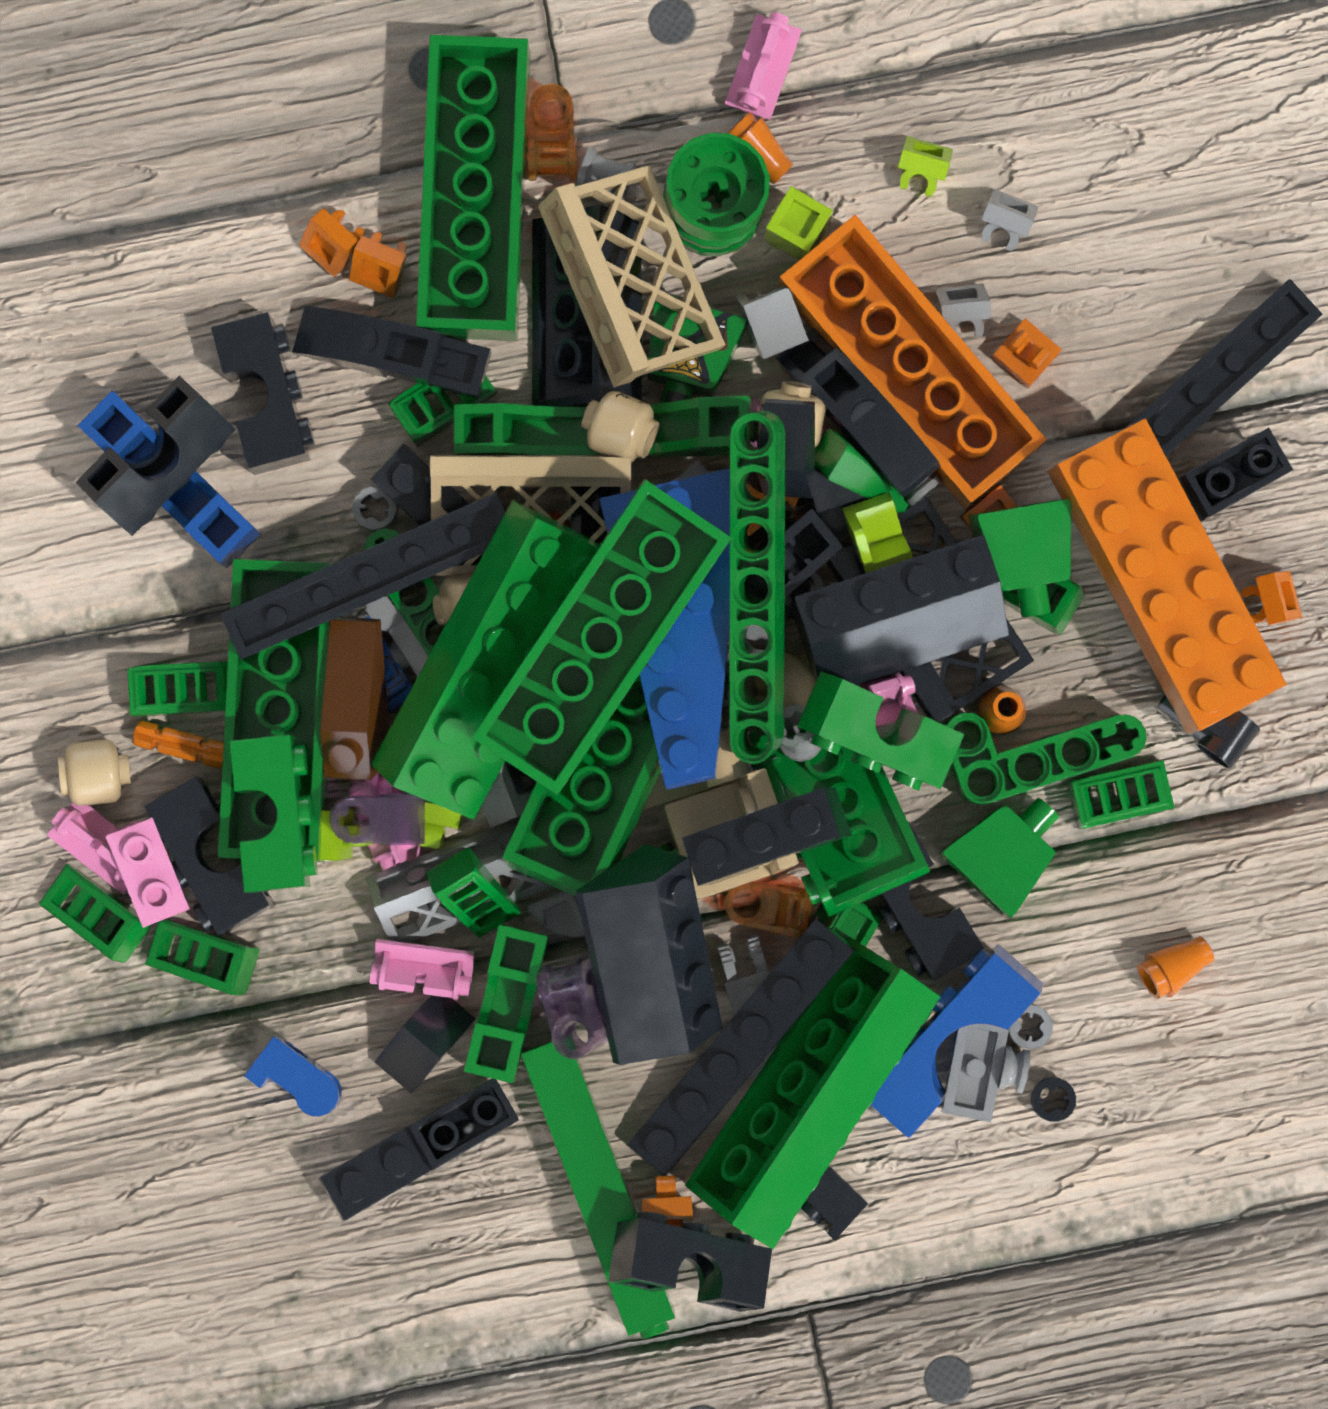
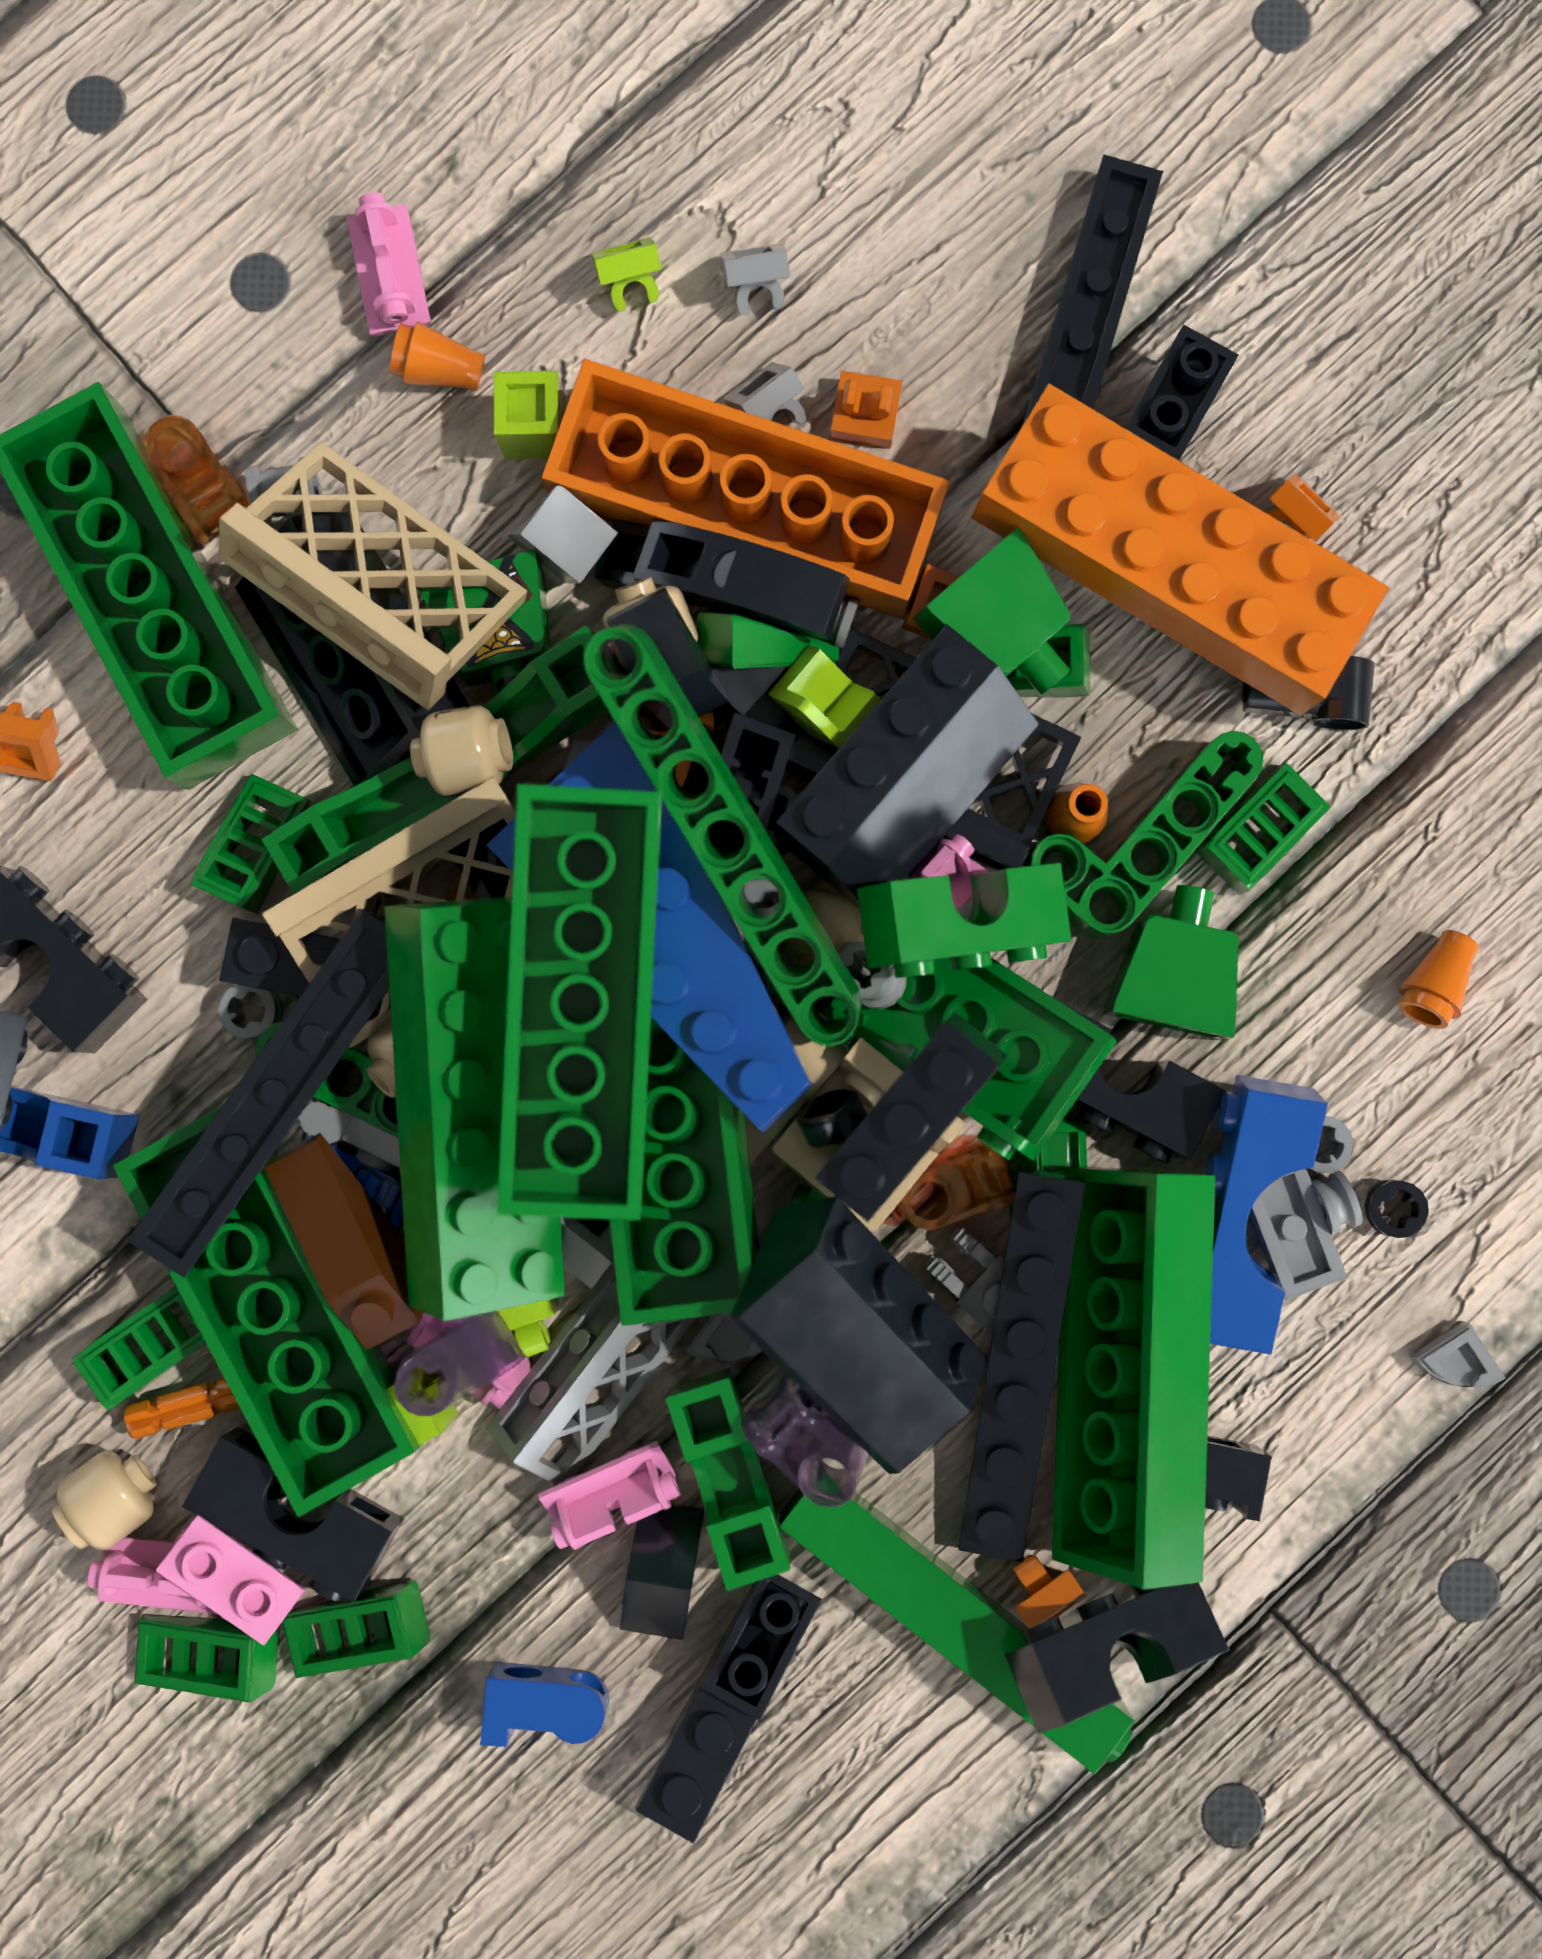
camera: 30 degrees left, 0 degrees up
(282, 856) = (369, 1471): green arch -> none
(378, 265) = (89, 738): orange tile -> none
(392, 350) = (160, 819): black slope -> none
(458, 872) = (586, 1360): green slope -> none
(714, 807) = (831, 1118): none -> black tile
(731, 173) = (408, 401): green wheel -> none
(1033, 1223) = (1459, 1359): none -> light grey tile

